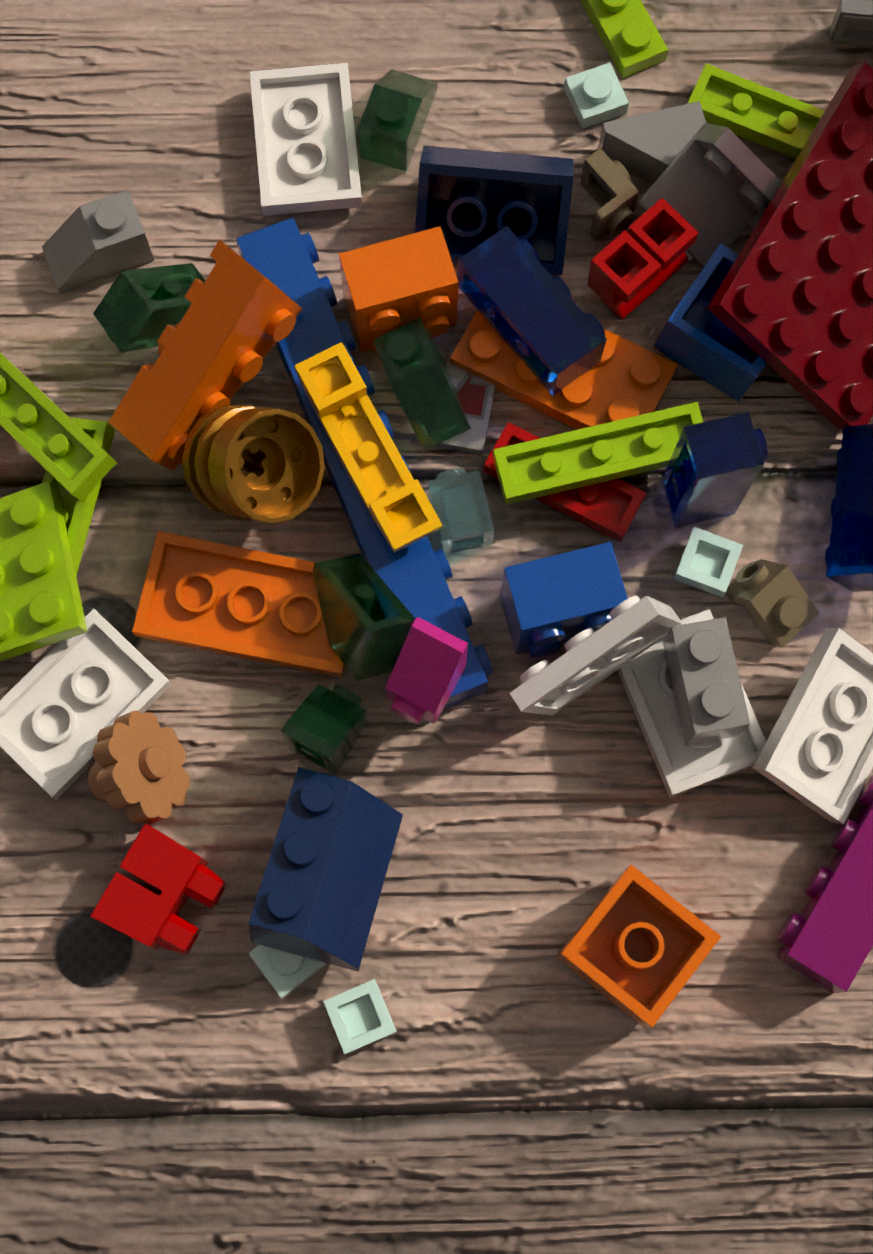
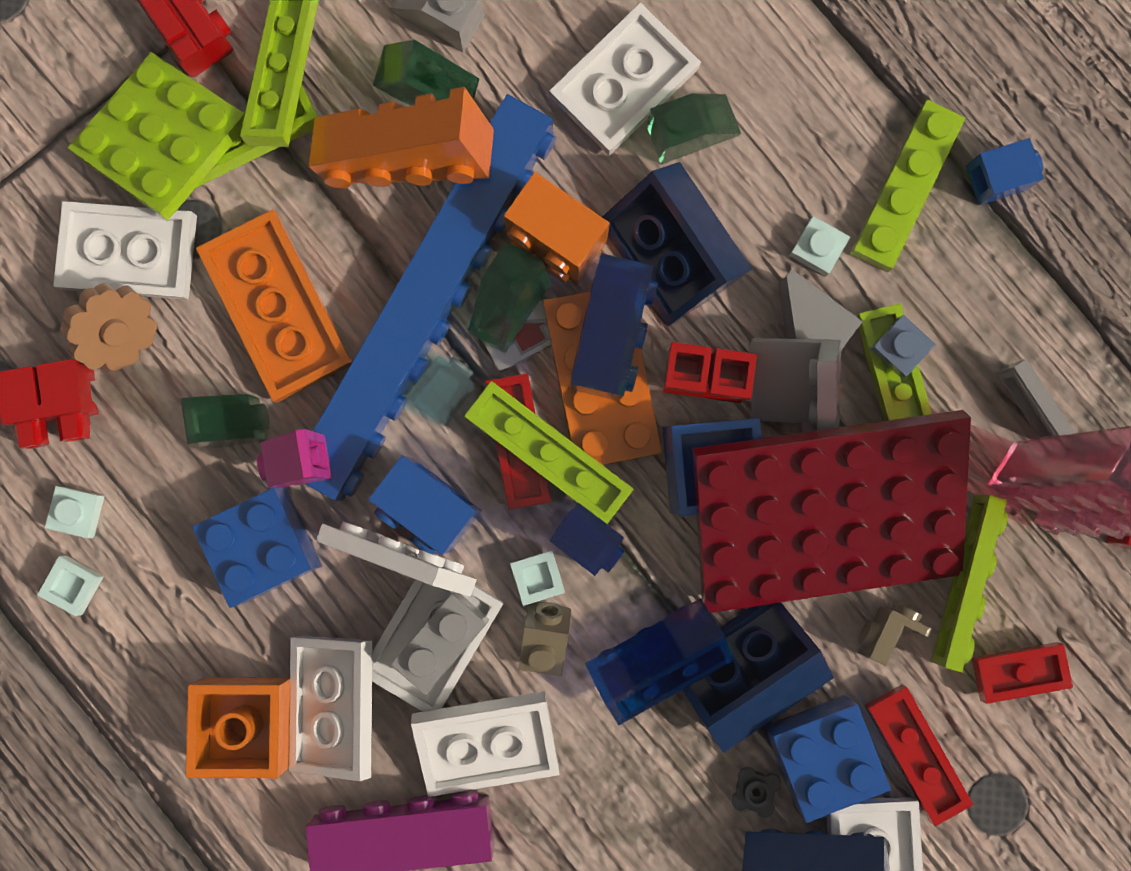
camera: 50 degrees right, 10 degrees up
(253, 462) = (348, 254): pearl gold wheel -> none
(325, 871) = (134, 494): dark blue slope -> none
(361, 615) = (312, 384): clear green slope -> none
(366, 448) = (422, 300): yellow slope -> none
(472, 795) = (257, 546): none -> blue brick
(612, 189) = (756, 307): dark tan bracket -> none
(686, 842) = (330, 707): none -> white plate
(747, 88) = (902, 346): none -> sand blue plate

